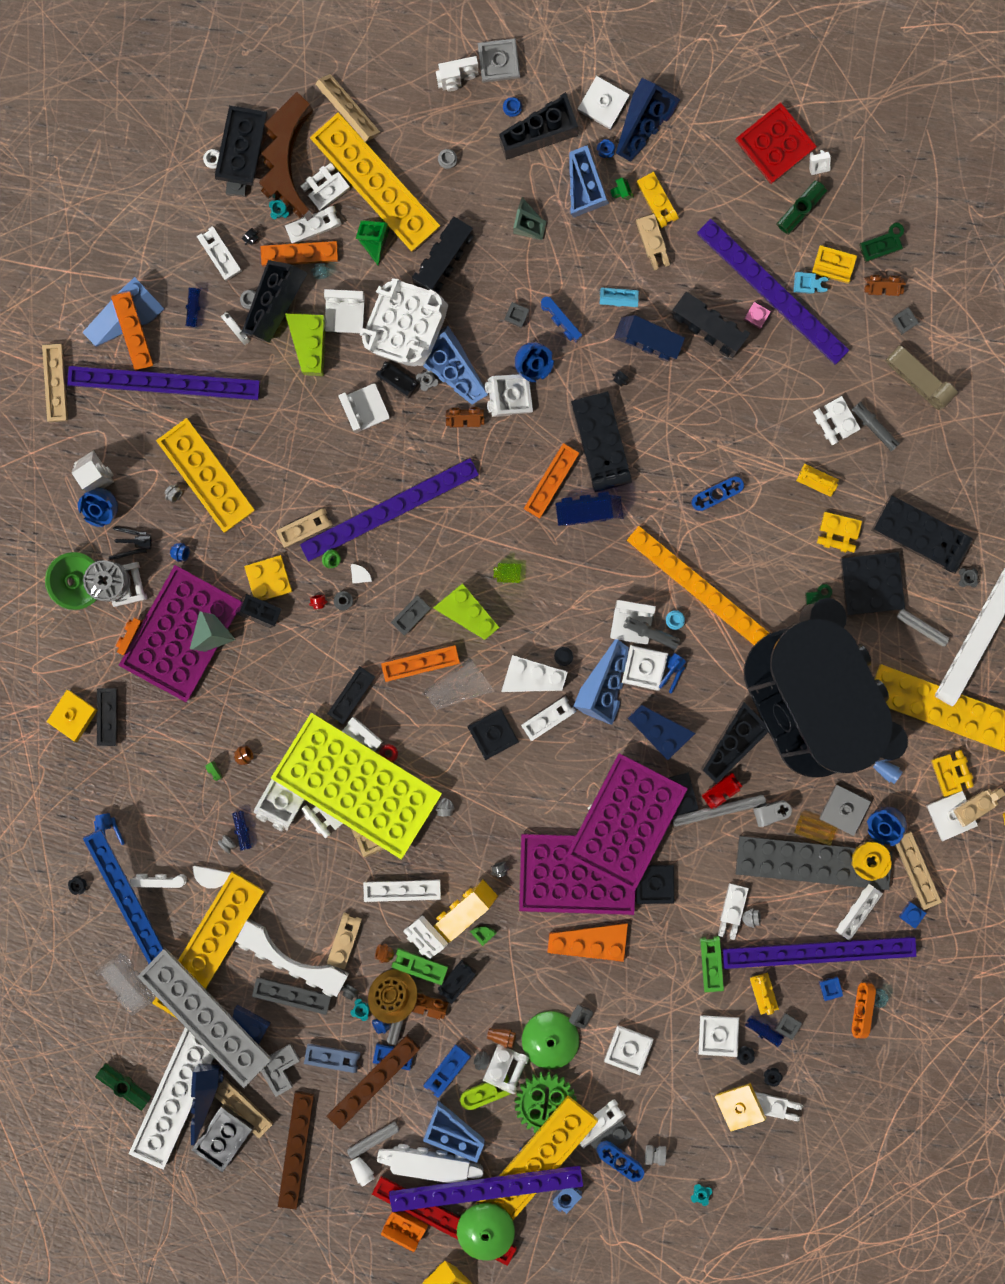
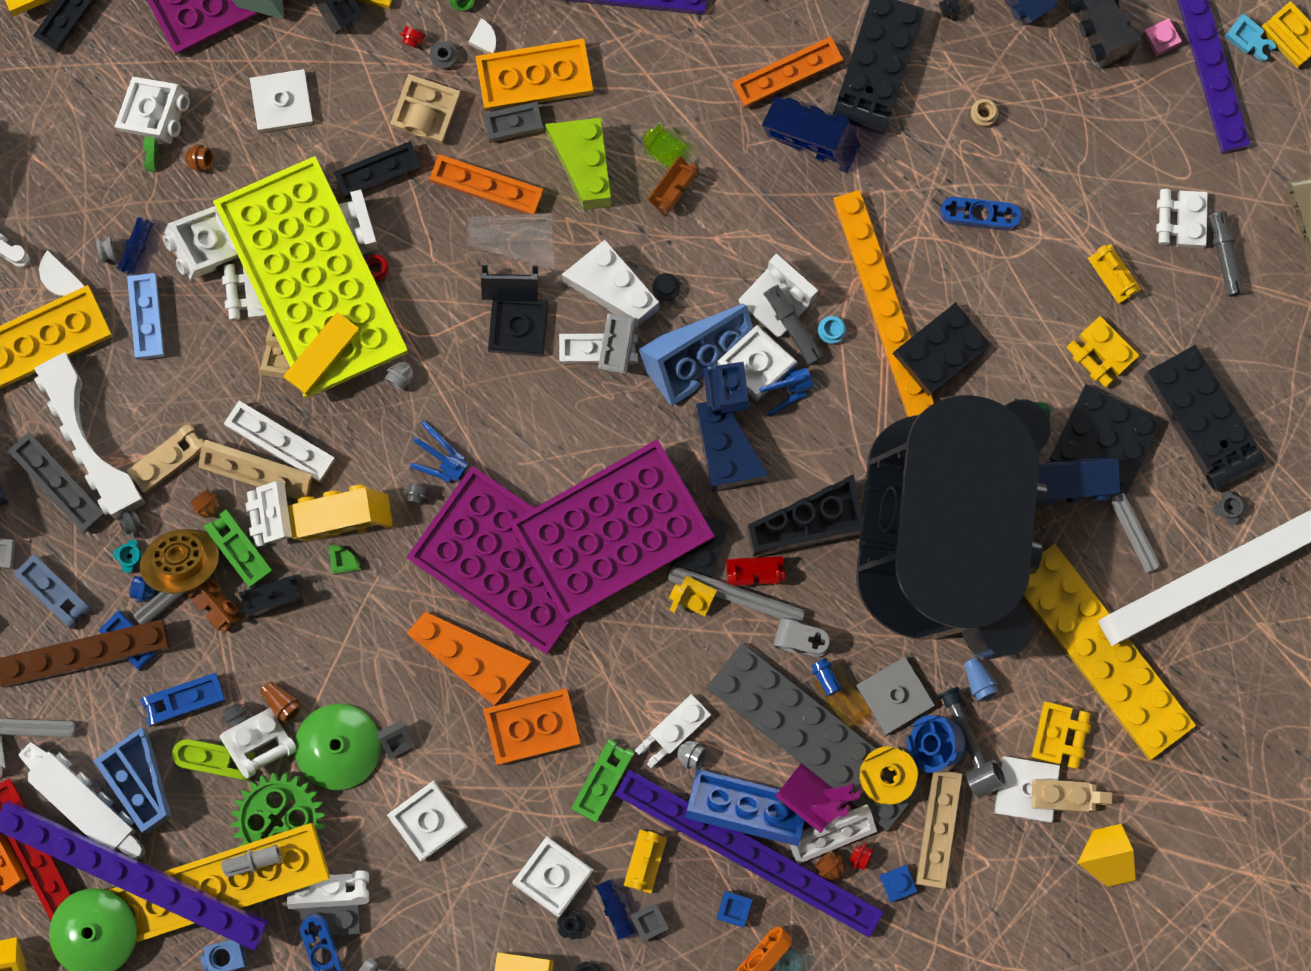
camera: 25 degrees right, 10 degrees down
(197, 744) = (153, 109): none -> white plate
(267, 689) = (281, 101): none -> white plate
(276, 867) = (146, 316): none -> light blue plate
(354, 640) = (425, 109): none -> tan plate
(394, 828) = (321, 353): none -> yellow tile
(399, 916) = (253, 469): none -> tan plate
(404, 578) = (534, 74): none -> light orange plate
(473, 715) = (509, 286): none -> black hinge
(510, 841) = (452, 466): none -> blue plant
(528, 601) = (672, 184): none -> dark orange hinge
(549, 1139) = (251, 861): none -> light grey axle
(559, 711) = (617, 343): none -> light grey plate
(639, 698) = (726, 388): none -> dark blue plate
(652, 960) = (531, 726): none -> orange plate
(656, 885) = (597, 637): black tile -> none
(681, 424) = (990, 107): none -> tan plate
(695, 827) = (692, 595): none -> yellow bracket
(746, 591) = (941, 349): none -> black plate
(800, 826) = (826, 677): none -> blue pin
(803, 929) = (742, 808): none -> blue plate
(838, 899) = (815, 799): none -> magenta plate
(869, 930) = (830, 866): none -> dark orange plate
(874, 621) = (1080, 479): none -> dark blue wedge
(883, 913) = (861, 856): none -> red plate
(924, 826) = (985, 775): none -> dark grey piece

